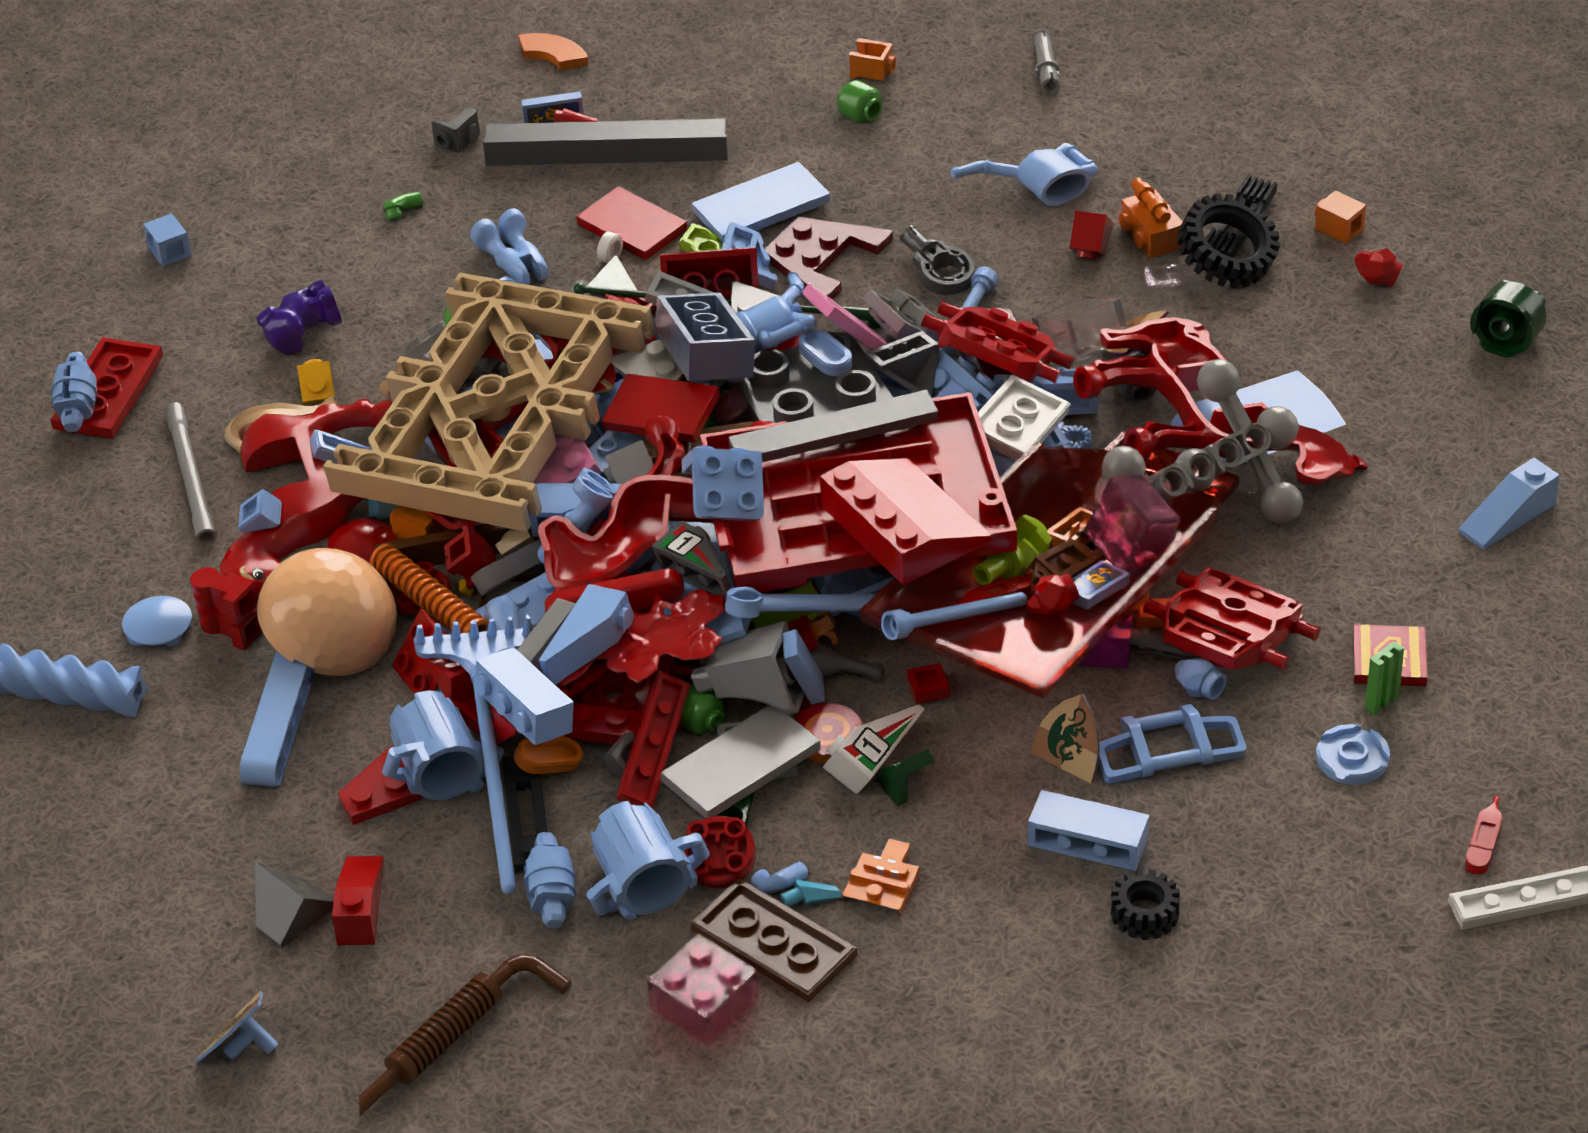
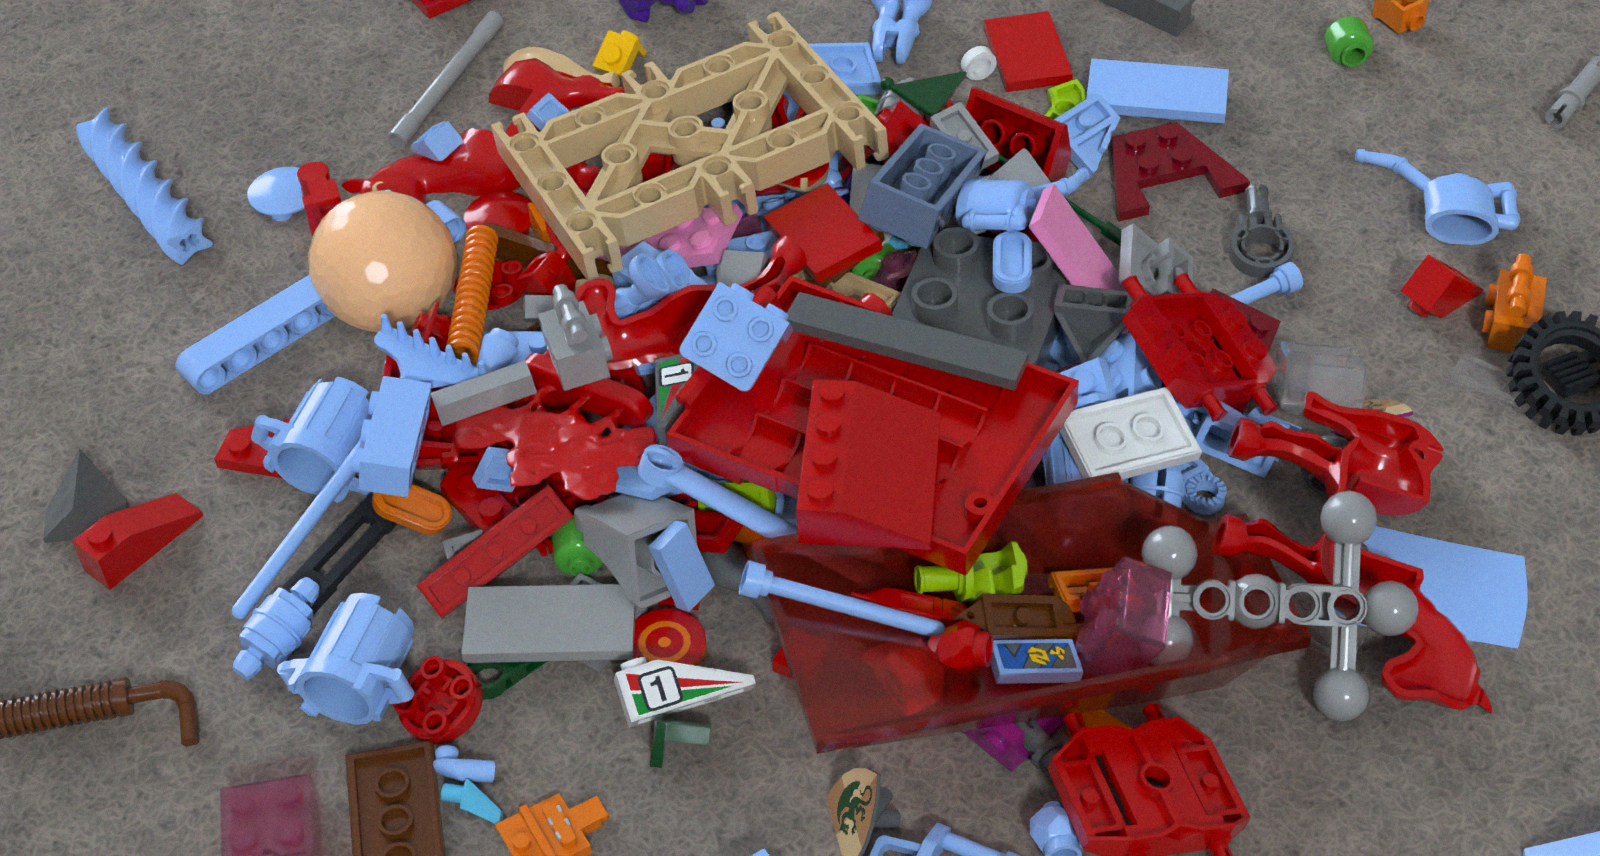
camera: 40 degrees right, 5 degrees up
(587, 631) = (508, 409): light blue slope -> none
(588, 558) = (574, 340): none -> light grey brick
(600, 687) = (493, 471): none -> light blue tile

